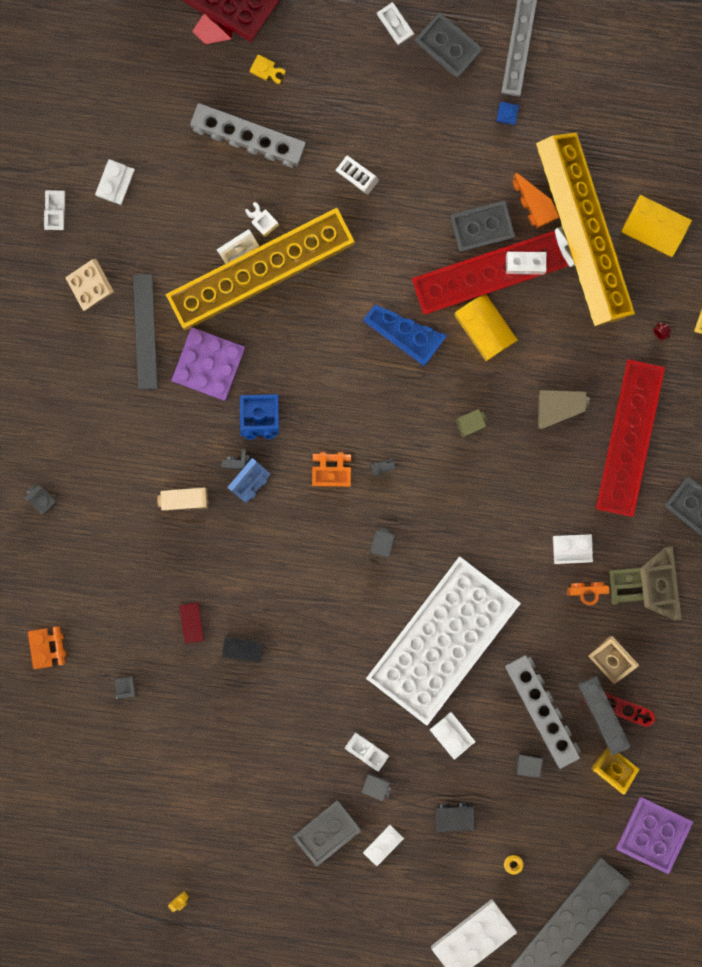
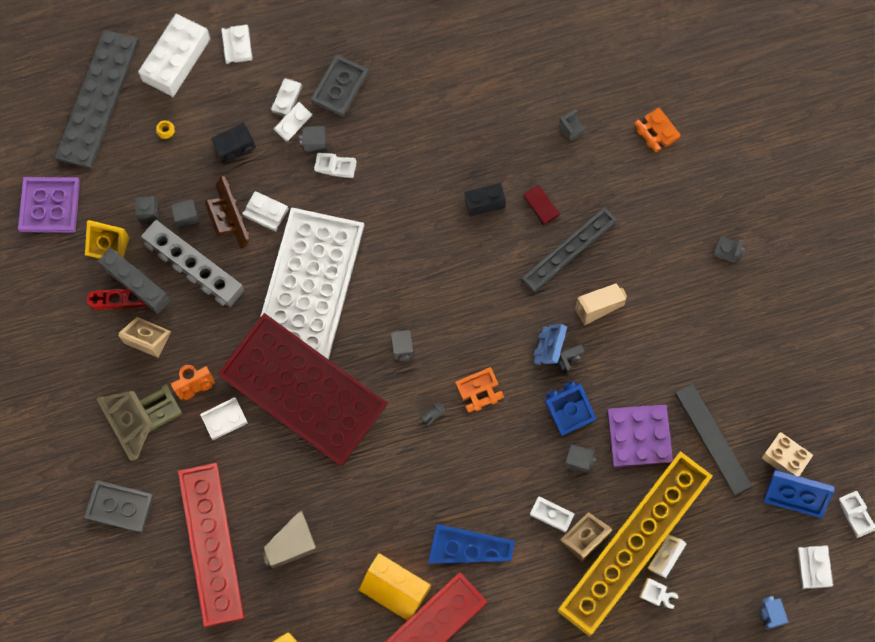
camera: 160 degrees right, 15 degrees down
(98, 247) = (798, 494): none -> blue plate
(171, 159) = (773, 613): none -> medium blue brick
(186, 566) = (569, 250): none -> dark grey tile
(271, 365) = (580, 459): none -> dark grey brick
(299, 296) = (586, 536): none -> tan slope
(319, 329) = (552, 514): none -> white plate
(388, 815) = (292, 121): none -> white plate
(407, 926) = (237, 44): none -> white plate
(471, 423) = (367, 487): olive piece -> none
(491, 541) = (303, 389): none -> dark red plate
(492, 747) = (225, 214): none -> reddish brown bracket
(563, 786) = (147, 209): none -> dark grey brick

